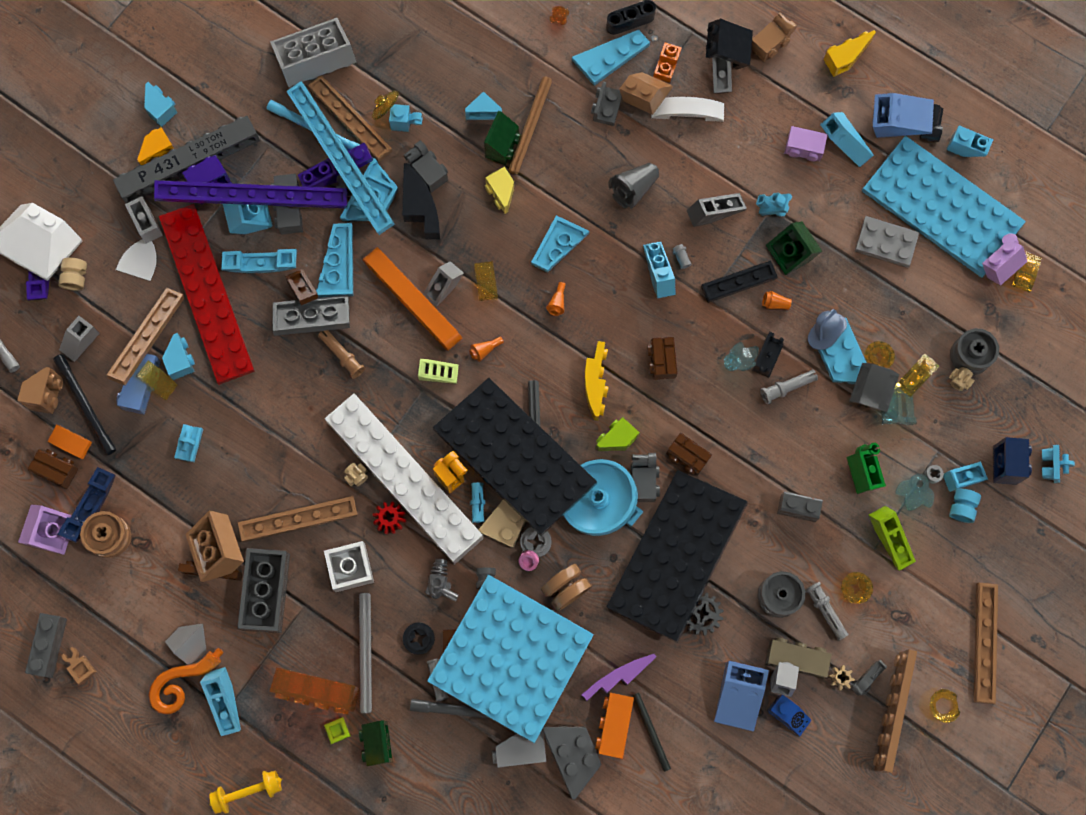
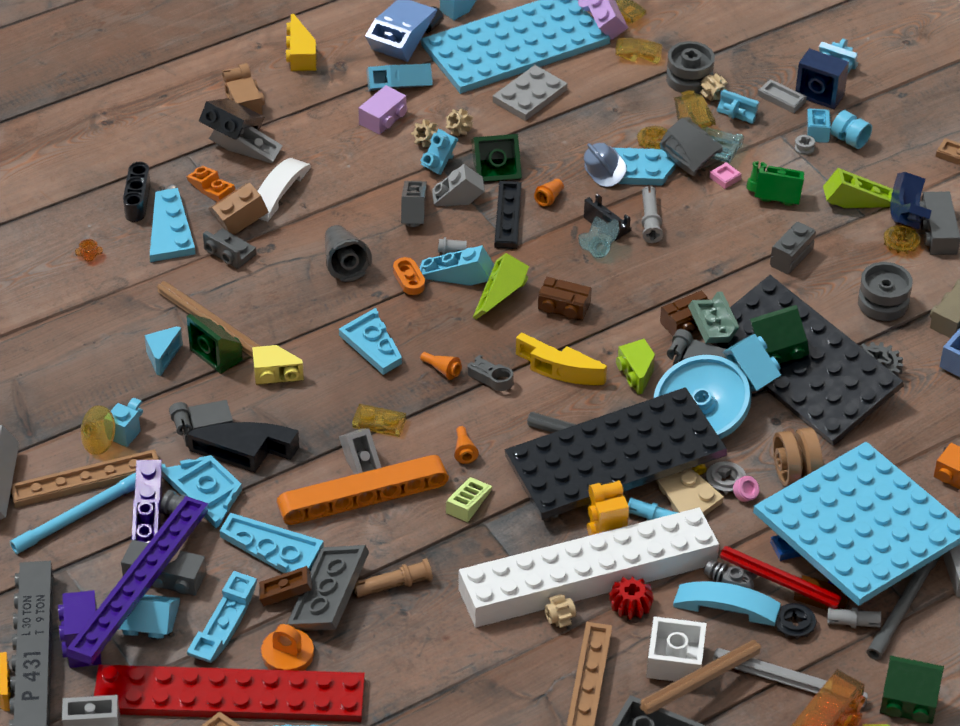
camera: 65 degrees left, 30 degrees down
(254, 313) = (287, 649): none -> orange tile
(324, 592) = (700, 677): none -> medium nougat axle
(340, 158) = (141, 484): medium azure plate -> none
(412, 586) = (728, 597): none -> medium azure slope
(445, 610) = (780, 577): none -> red axle
(482, 574) = (747, 531): dark grey wheel -> none
(563, 335) = (488, 374): none -> dark grey piece
(624, 673) = (919, 451): medium lavender slope -> none
(635, 240) = (409, 276): none -> orange plate
(637, 521) = (754, 361): none -> medium azure slope
(655, 308) = (504, 279): none -> lime slope
(672, 533) = (782, 334): none -> dark green slope
(679, 476) = (714, 319): none -> sand green bracket
(745, 235) = (458, 188): none -> light grey slope
(793, 185) = (424, 132): none -> tan gear
(818, 204) = (459, 122): none -> tan gear
(822, 602) = (926, 267): light grey pin -> none
(865, 425) = (725, 175): none -> bright pink tile
(887, 611) = (941, 229): none -> dark grey brick
(895, 578) = (905, 200): none -> dark blue arch
(916, 495) = (817, 161): clear light blue plate -> none
(948, 406) = (738, 106): none -> medium azure hips
(981, 302) = (633, 47): none -> clear yellow slope
(985, 435) = (782, 96): none -> light grey tile

